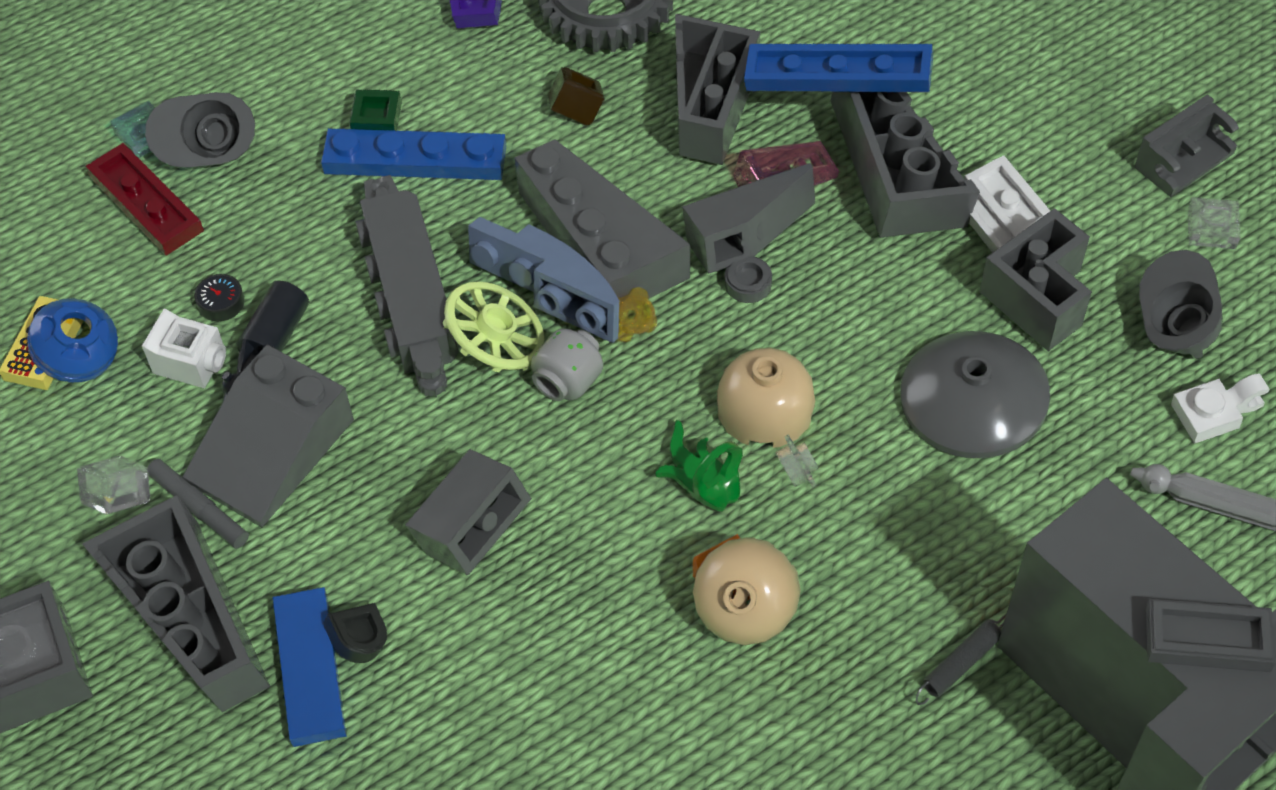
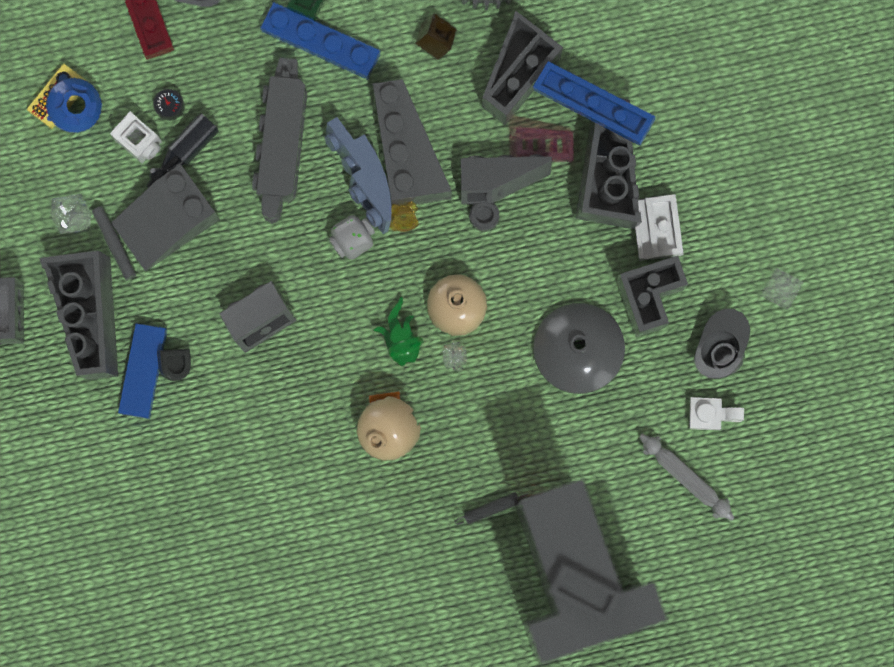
camera: 20 degrees right, 25 degrees up
(494, 325) = (317, 196): yellowish green wheel -> none
(1187, 146) = (794, 230): dark grey hinge -> none

